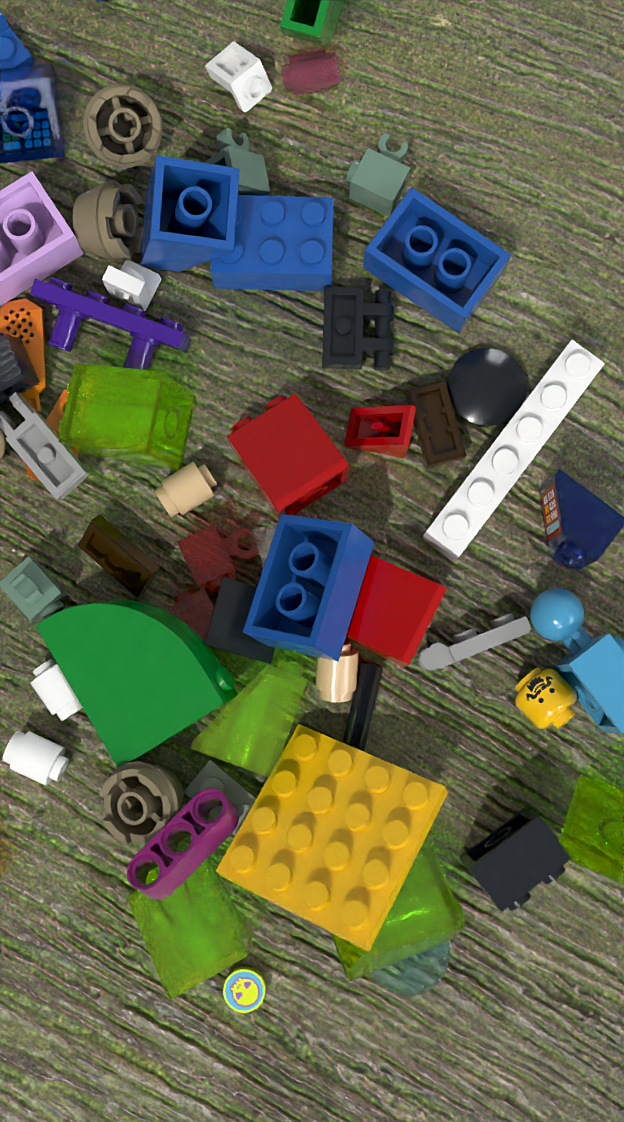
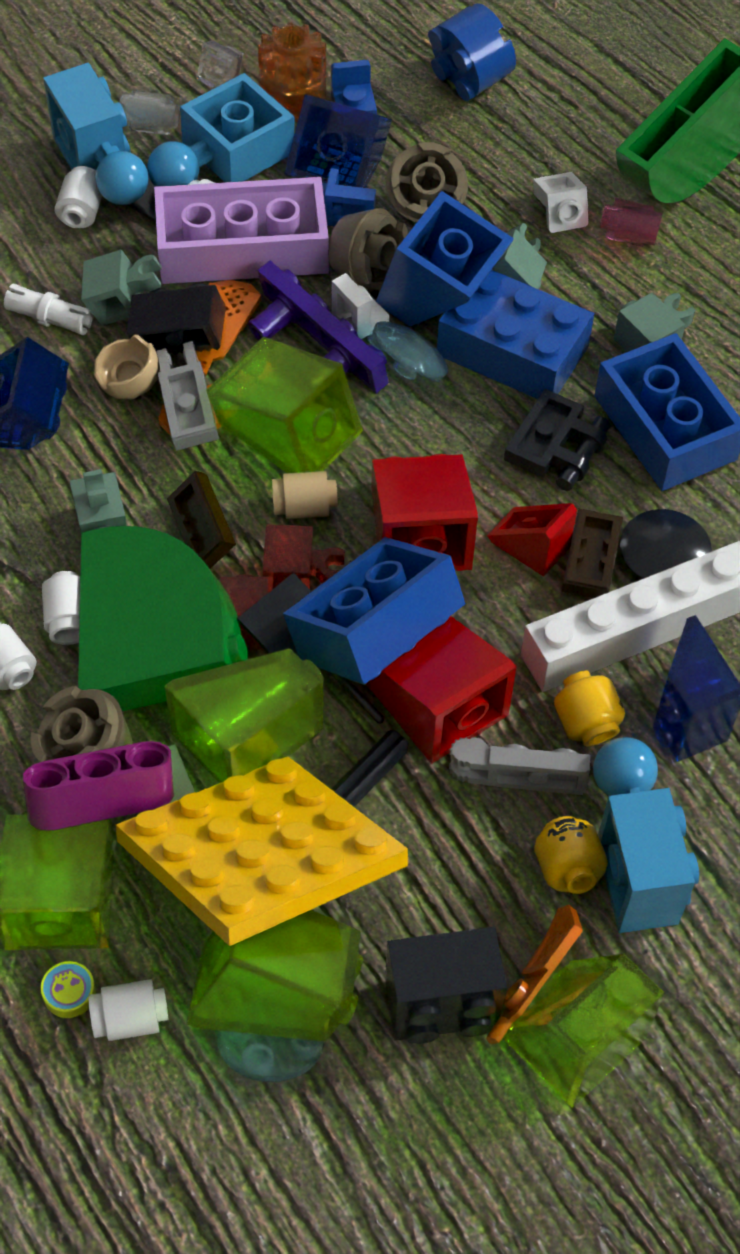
camera: 25 degrees right, 25 degrees down
(64, 177) = (345, 200): none -> blue bracket
(196, 307) = (410, 351): none -> clear light blue dish
(298, 987) = (127, 1010): none -> white brick
(338, 679) = (358, 719): tan brick -> none
(500, 567) = (589, 708): none -> yellow head
(569, 796) = (554, 946): none -> orange piece

